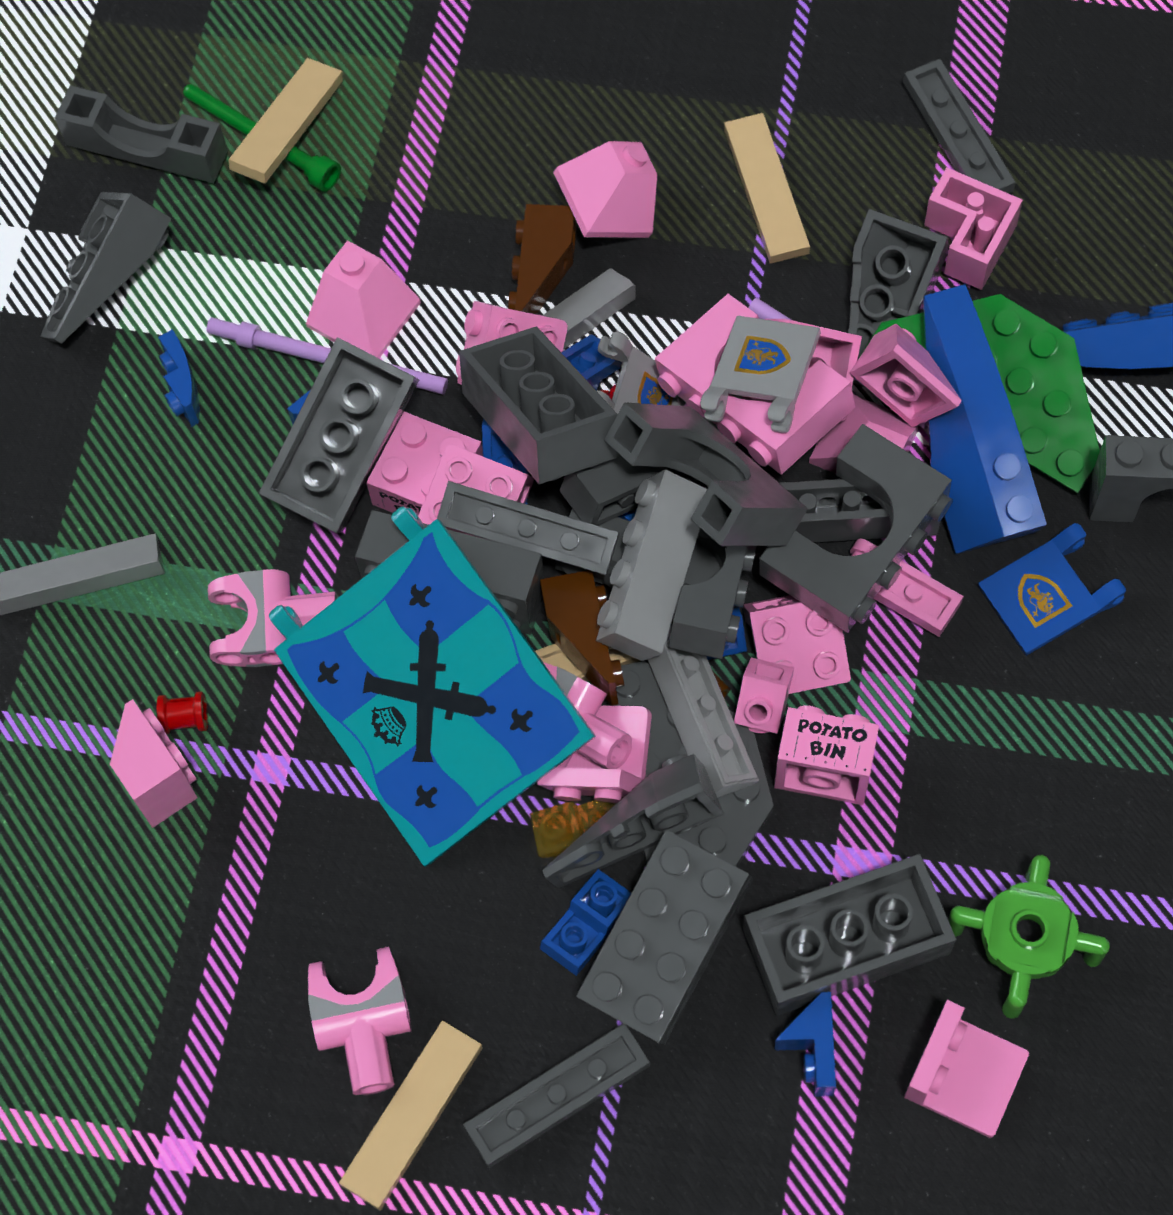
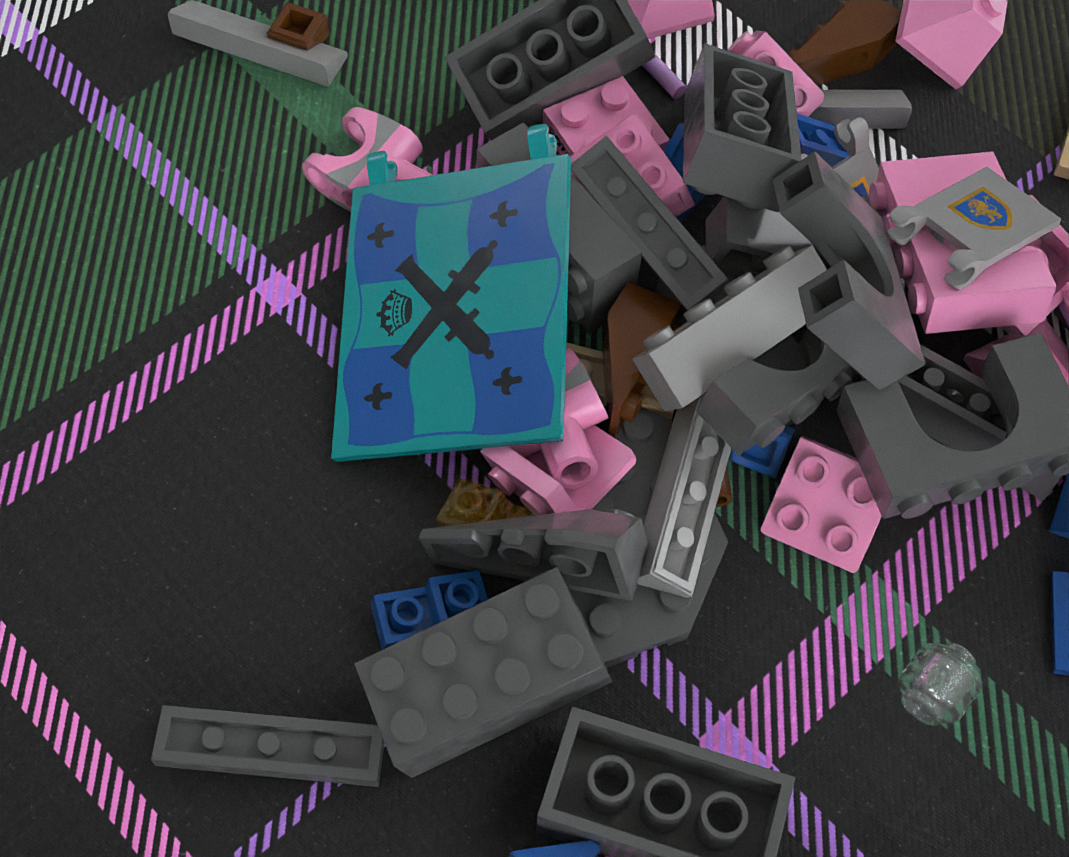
camera: 30 degrees right, 5 degrees down
(104, 541) = (299, 27): none -> reddish brown slope
(151, 765) = (170, 209): bright pink slope -> none
(183, 712) = (242, 194): red bush -> none
(361, 1022) = (160, 545): bright pink connector -> none
(410, 1115) = (129, 664): tan tile -> none
(763, 696) = (756, 523): bright pink brick -> none
(826, 754) = (775, 616): bright pink brick -> none
(916, 595) = (981, 542): bright pink plate -> none
(960, 719) = (940, 683): none -> clear head

